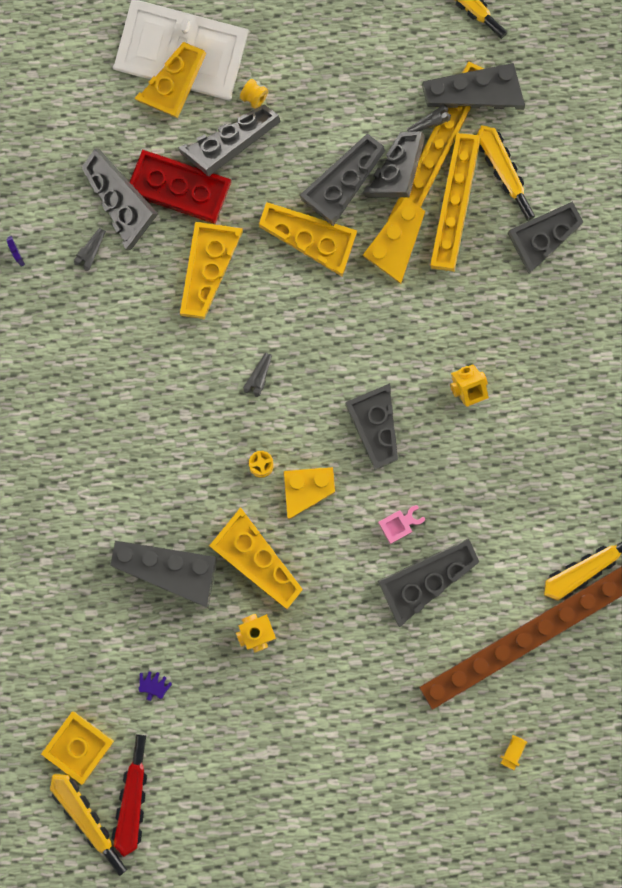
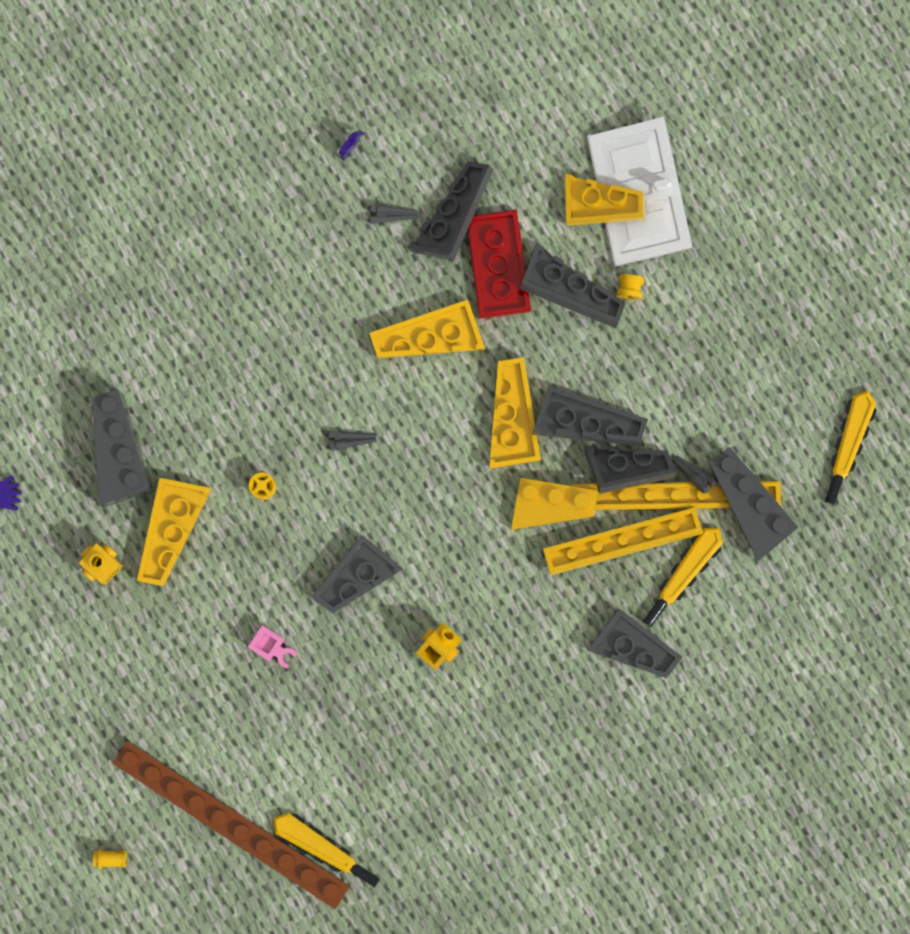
camera: 65 degrees right, 5 degrees up
(307, 488) = (262, 541): yellow wing -> none
(419, 583) = (223, 692): dark grey wing -> none

